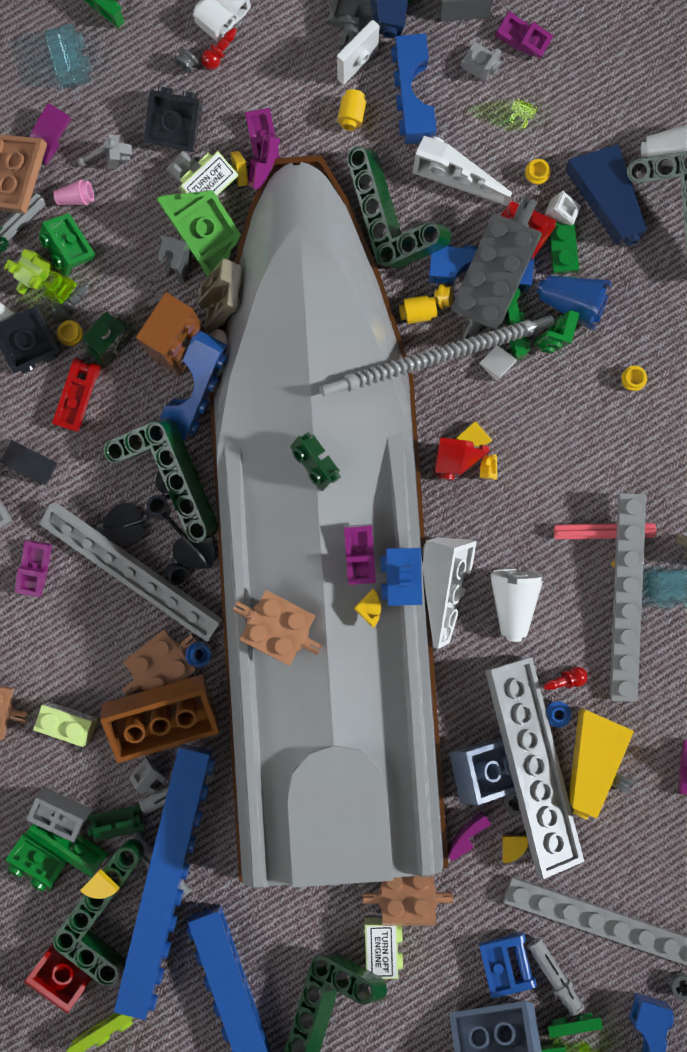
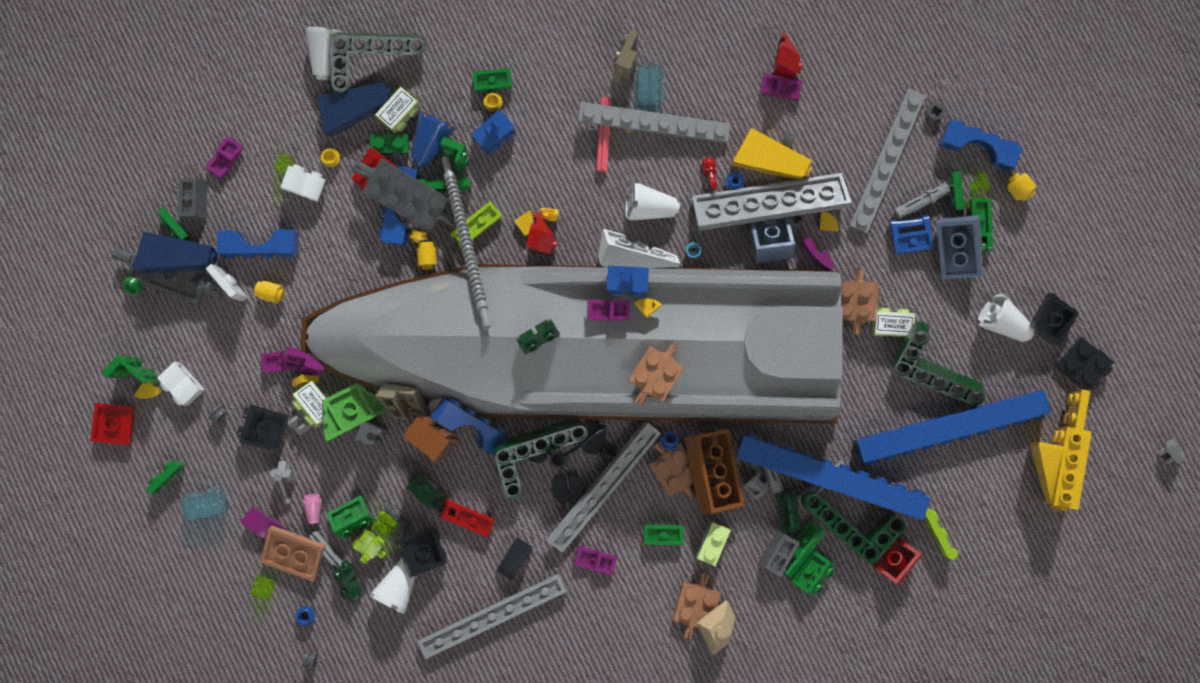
camera: 80 degrees left, 0 degrees up
(69, 333) = (419, 519): yellow plate -> none
(73, 657) = (663, 534): none -> green plate
(100, 886) = (832, 523): yellow tile -> none
(212, 57) = (216, 395): red bar -> none
(386, 216) = (353, 272): dark green beam -> none
(447, 166) = (320, 223): white wedge -> none
(453, 665) = (693, 254): none -> medium azure hinge
(470, 376) = (479, 222): none -> lime plate
(481, 61) = (241, 191): light grey bracket -> none
(497, 362) = (472, 200): white slope -> none
(499, 139) = (303, 183): none -> white brick
(563, 209) = (361, 141): white slope -> none
(592, 383) = (494, 132): none -> blue brick
(609, 253) = (398, 110): none -> brick
(663, 374) = (492, 80): none -> green plate

